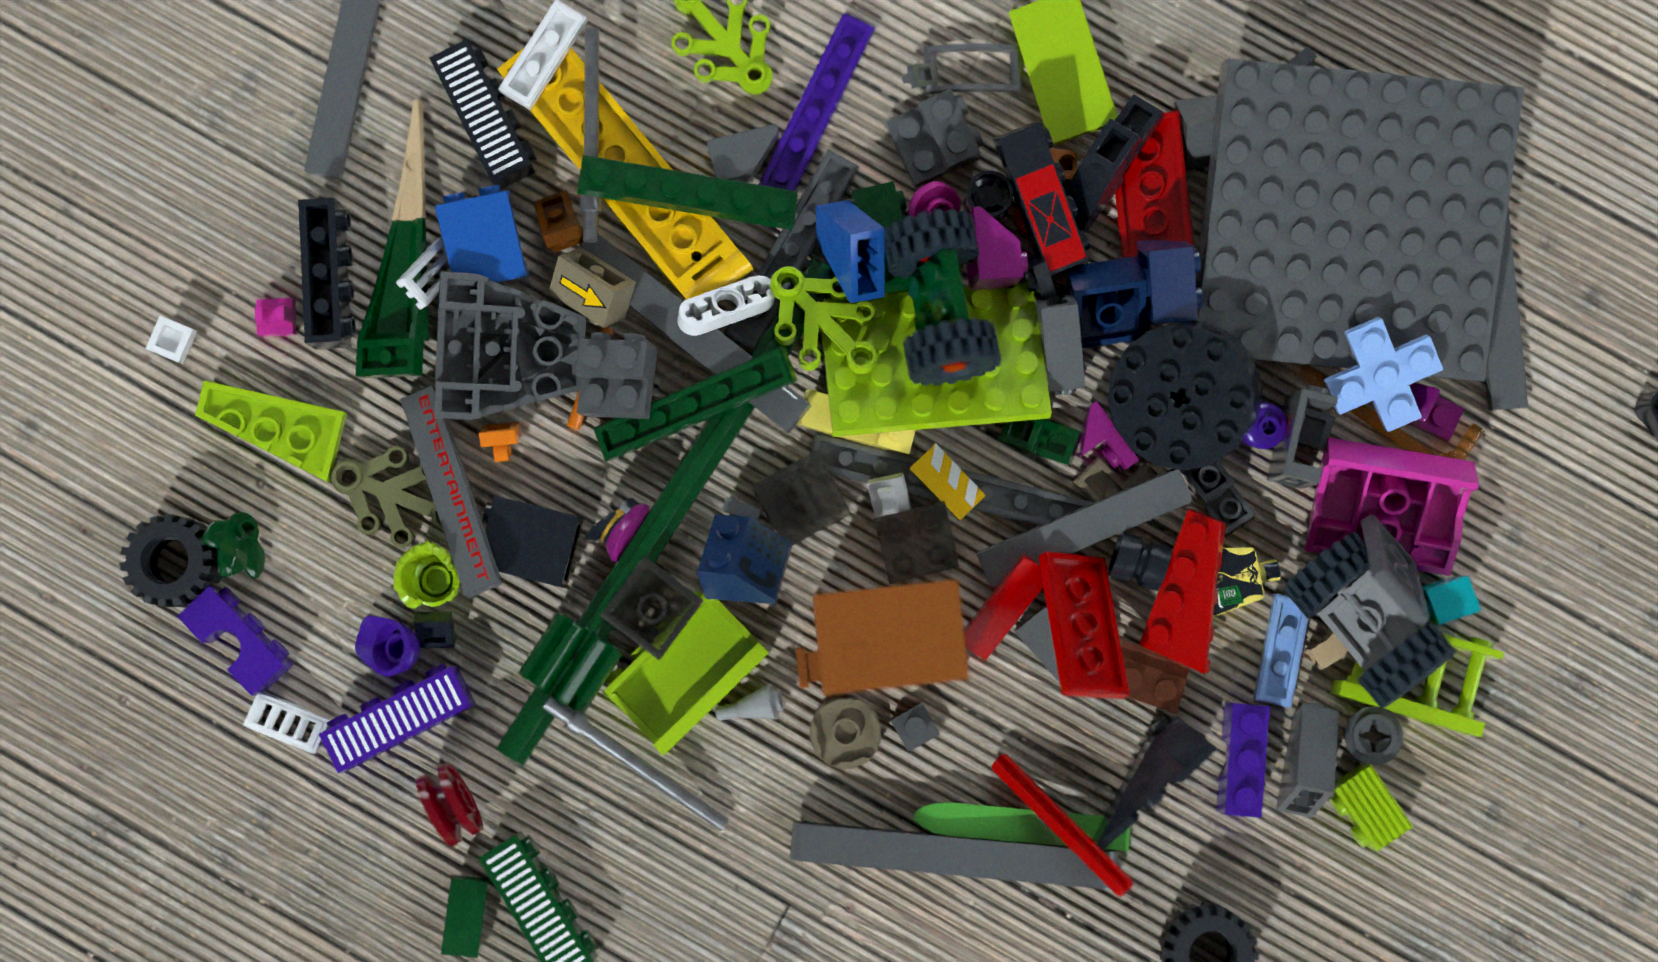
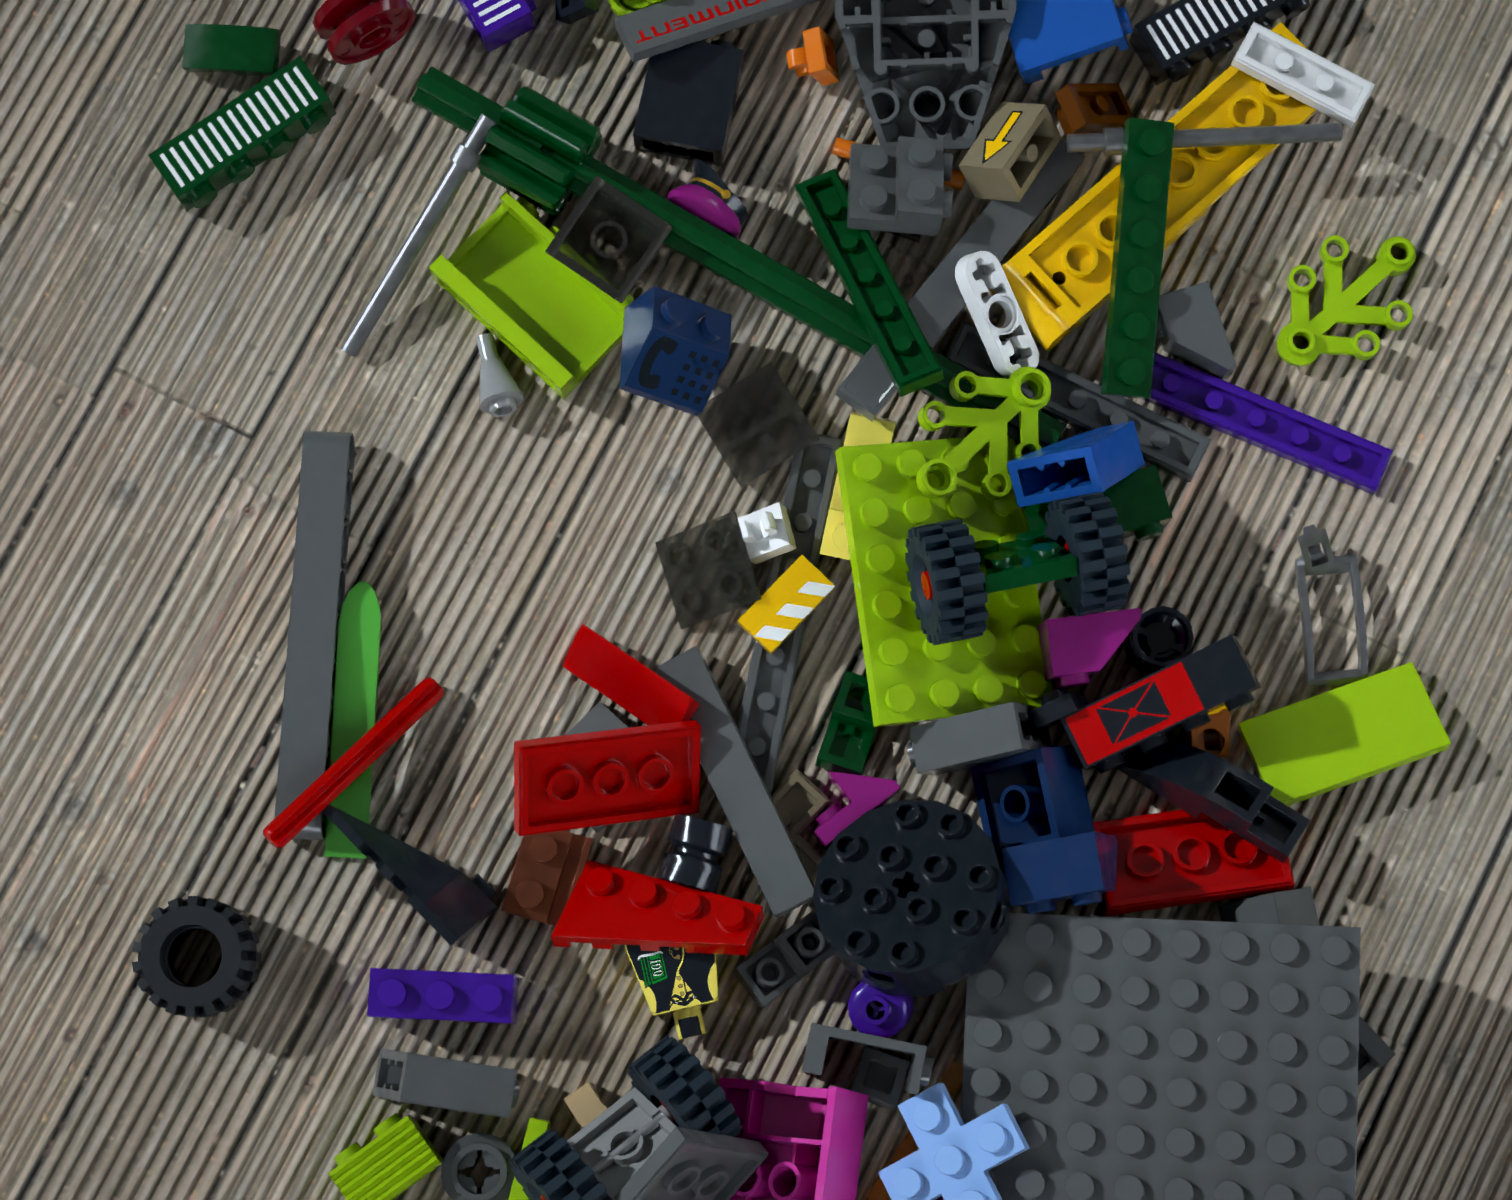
camera: 90 degrees right, 5 degrees down
(738, 508) = (740, 349): dark grey plate -> none
(845, 732) = (465, 495): dark tan tile -> none
(886, 638) = (578, 521): dark orange piece -> none
(915, 727) = (475, 580): dark grey plate -> none
(934, 197) = (1151, 574): dark pink plate -> none
(935, 137) = (1235, 573): dark grey plate -> none
(1281, 653) = (579, 1047): light blue tile -> none

